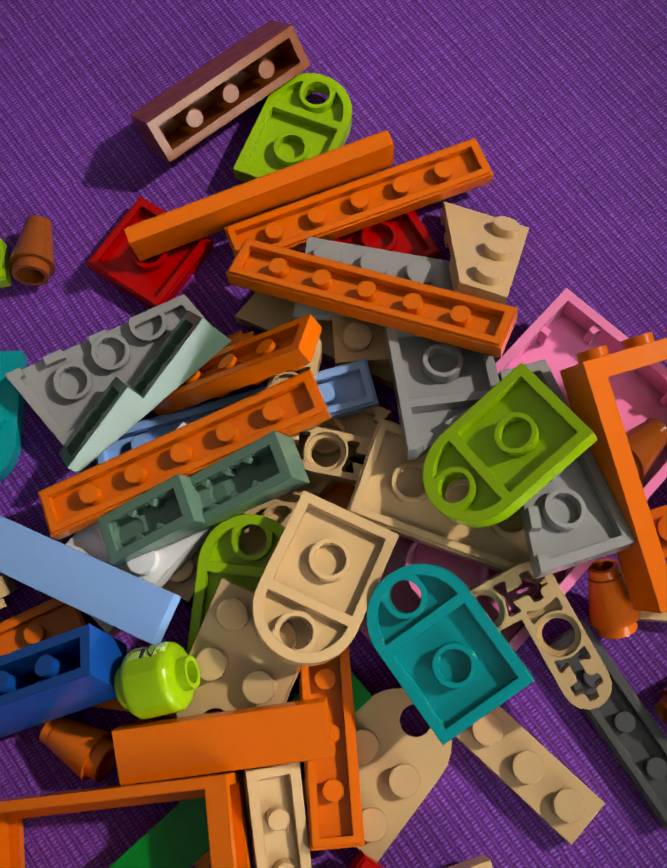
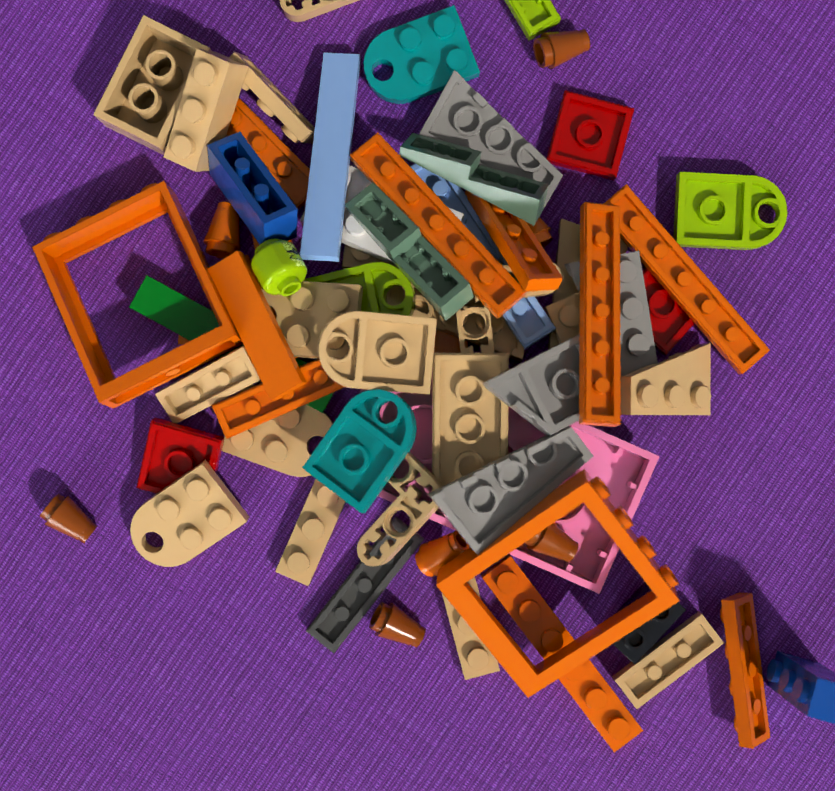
camera: 70 degrees right, 15 degrees up
(220, 90) = (744, 136): brick -> none
(261, 195) = (660, 204): orange tile -> none
(505, 448) = (509, 447): lime plate -> none

